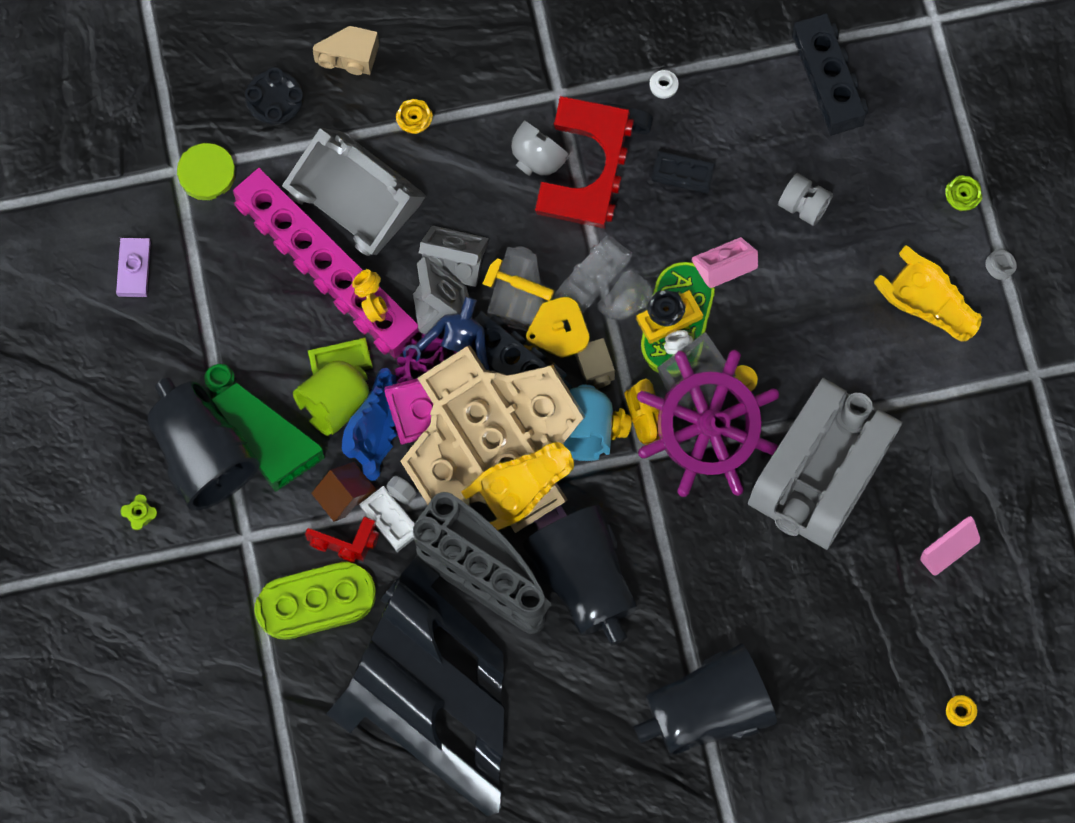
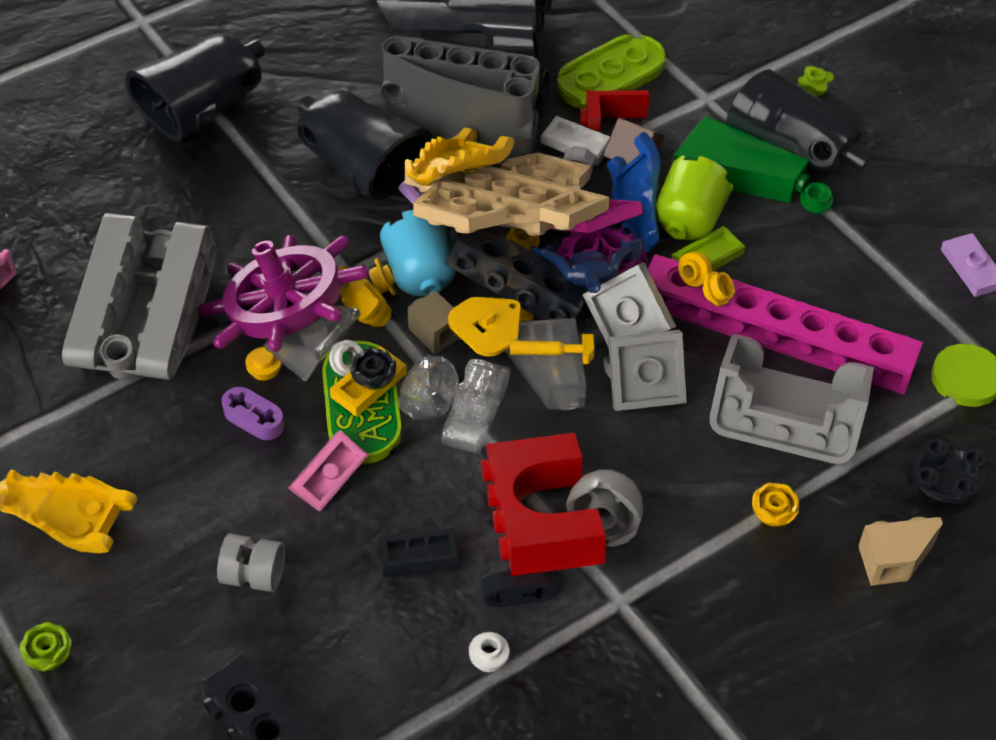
camera: 155 degrees right, 20 degrees down
(769, 332) = (256, 409): none -> medium lavender beam

